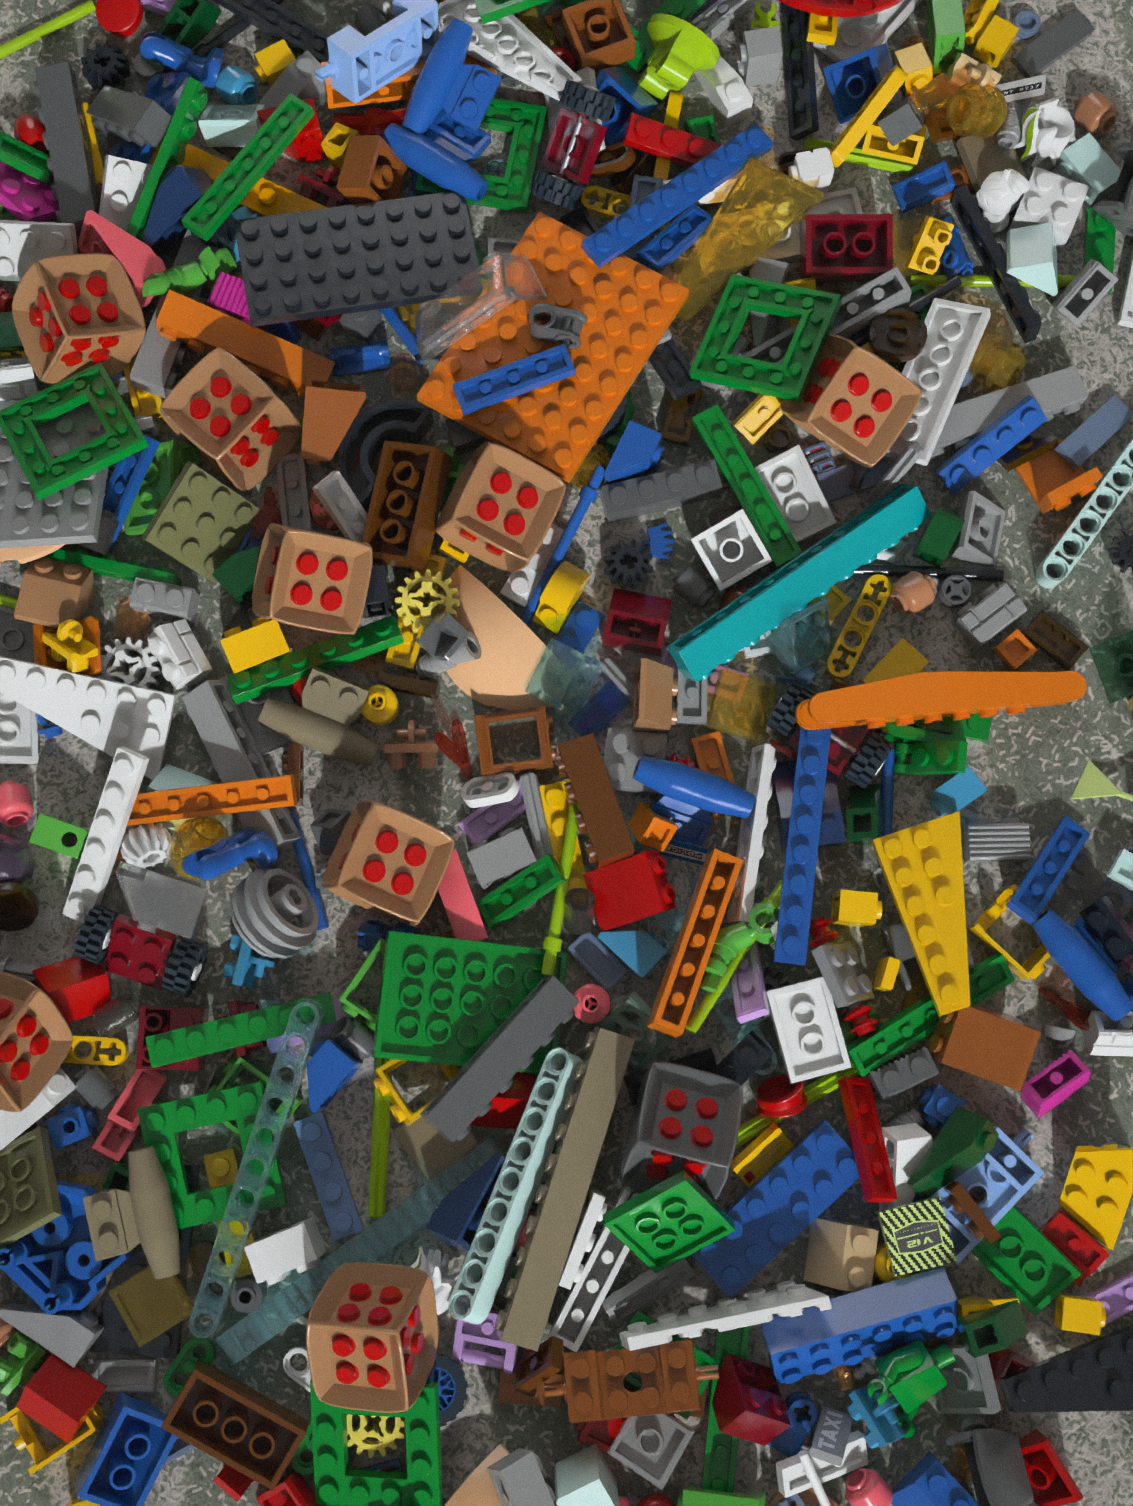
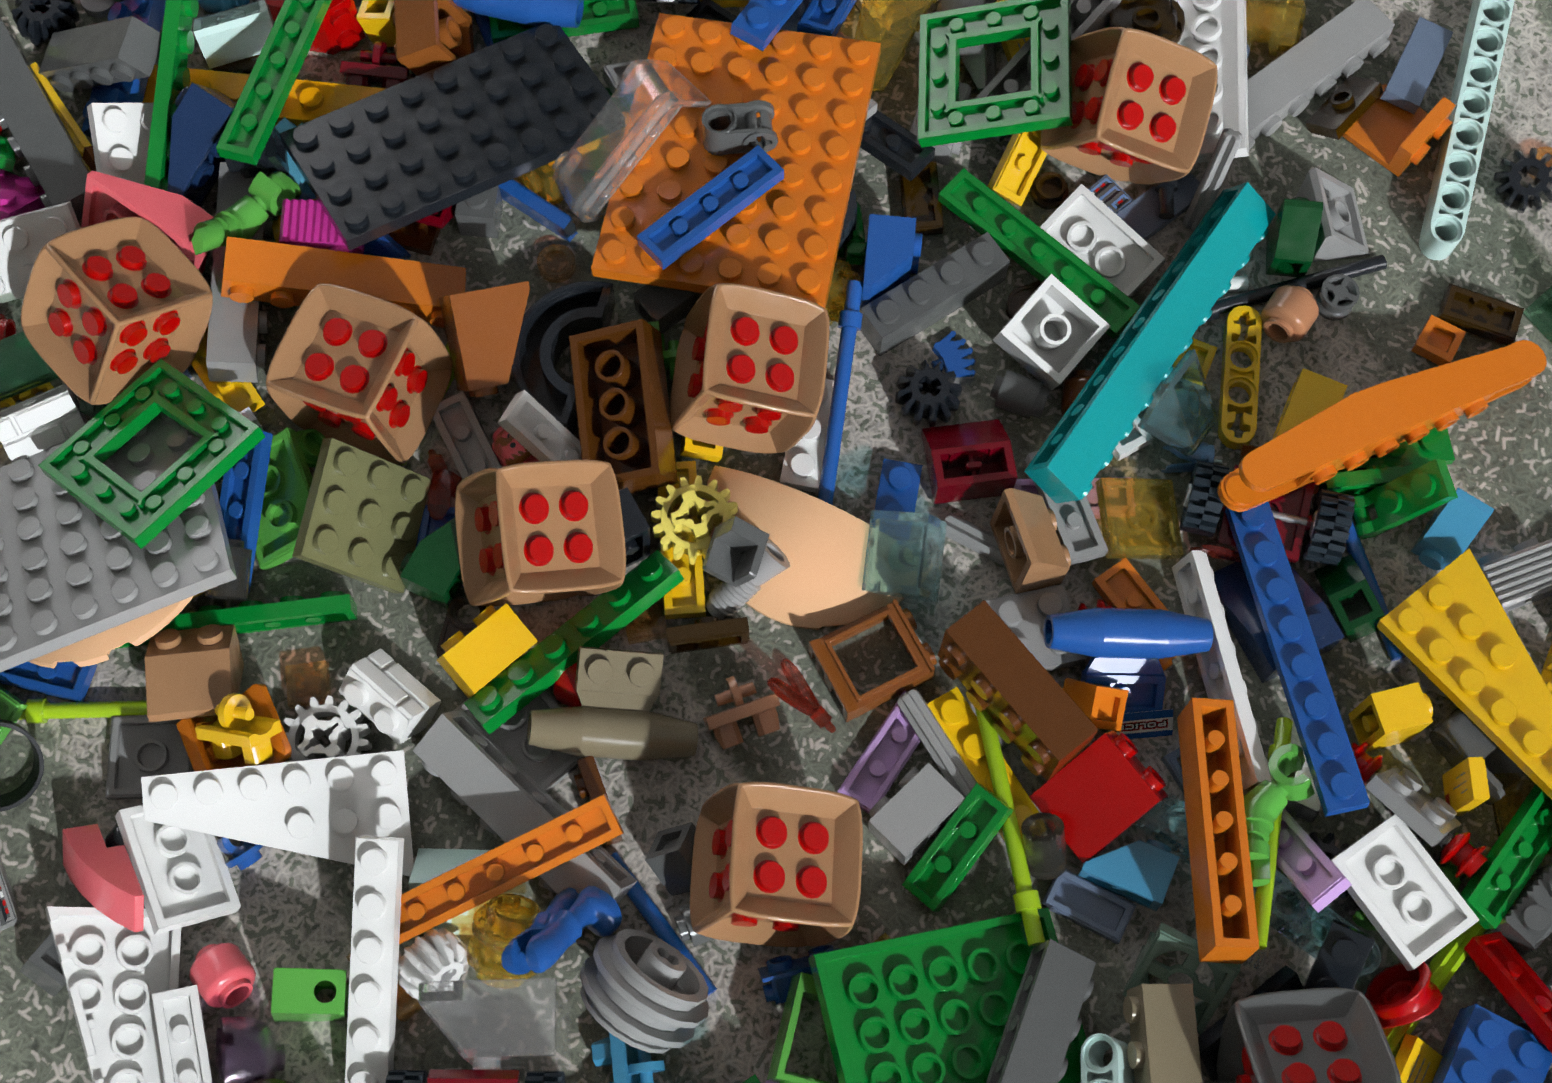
camera: 25 degrees left, 10 degrees down
(164, 600) = (344, 633): light grey brick -> none
(360, 358) = (495, 256): blue hinge -> none
(388, 708) = (682, 685): yellow head -> none
(460, 902) = (890, 898): coral slope -> none
(490, 789) = (865, 731): white plate -> none
(560, 595) = (859, 461): yellow brick -> none
(599, 711) = (962, 585): clear blue plate -> none
(603, 1003) = (1112, 950): coral head -> none
(990, 615) = (1392, 311): light grey brick -> none
(991, 444) = (1306, 114): blue plate -> none

